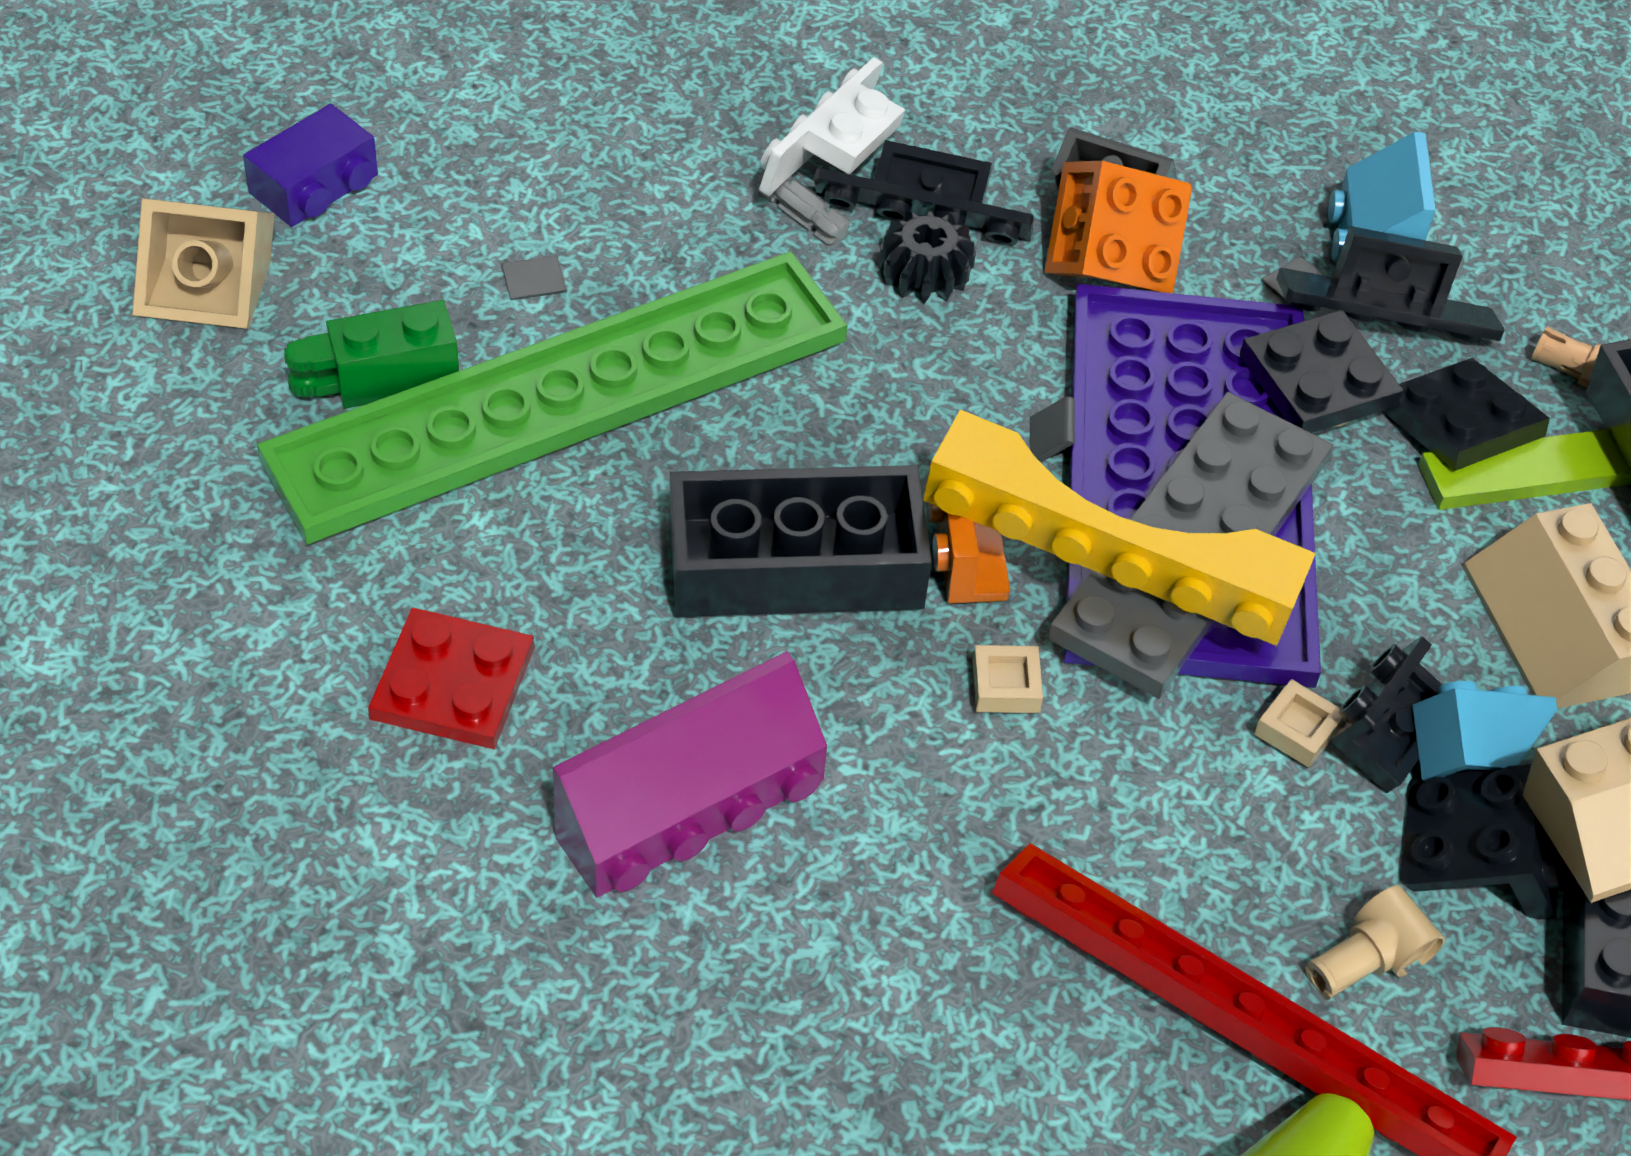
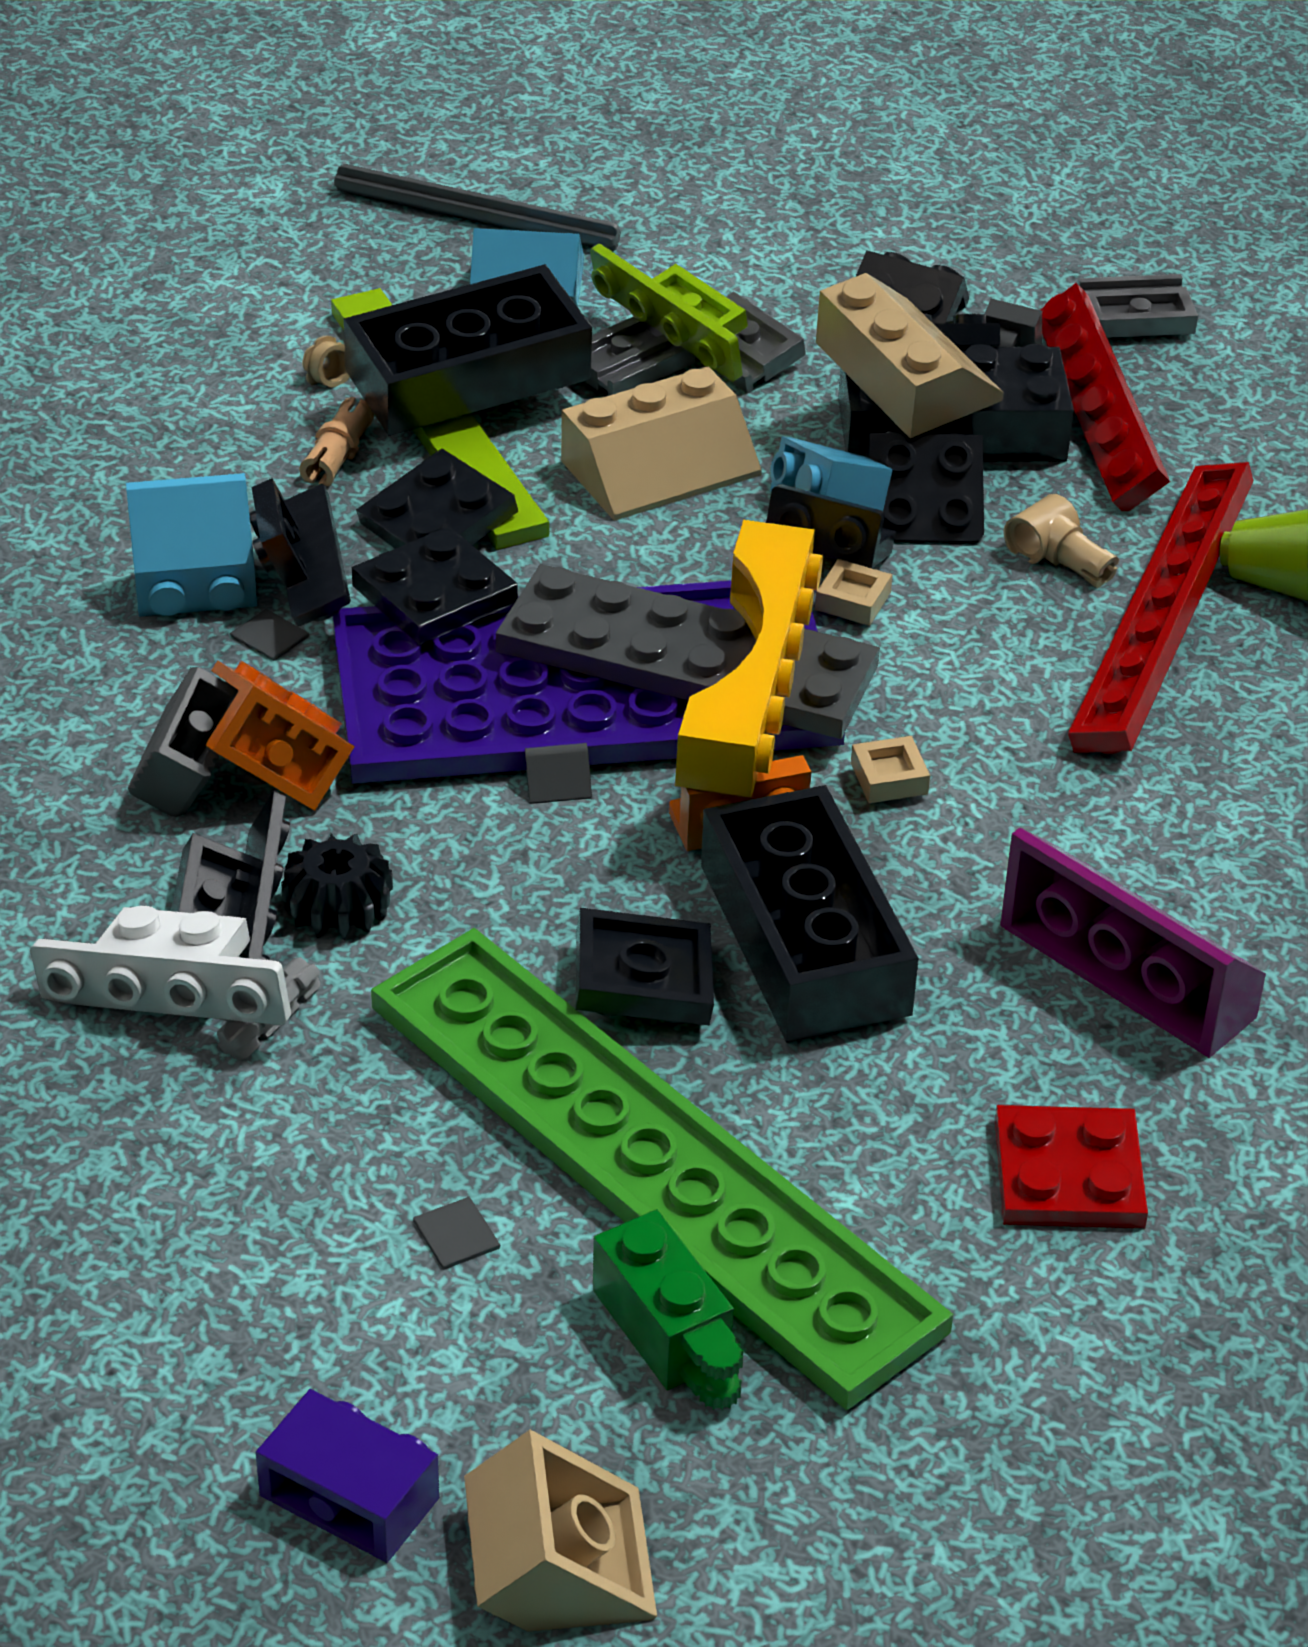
camera: 100 degrees left, 10 degrees down
(768, 419) = (644, 967): none -> black plate

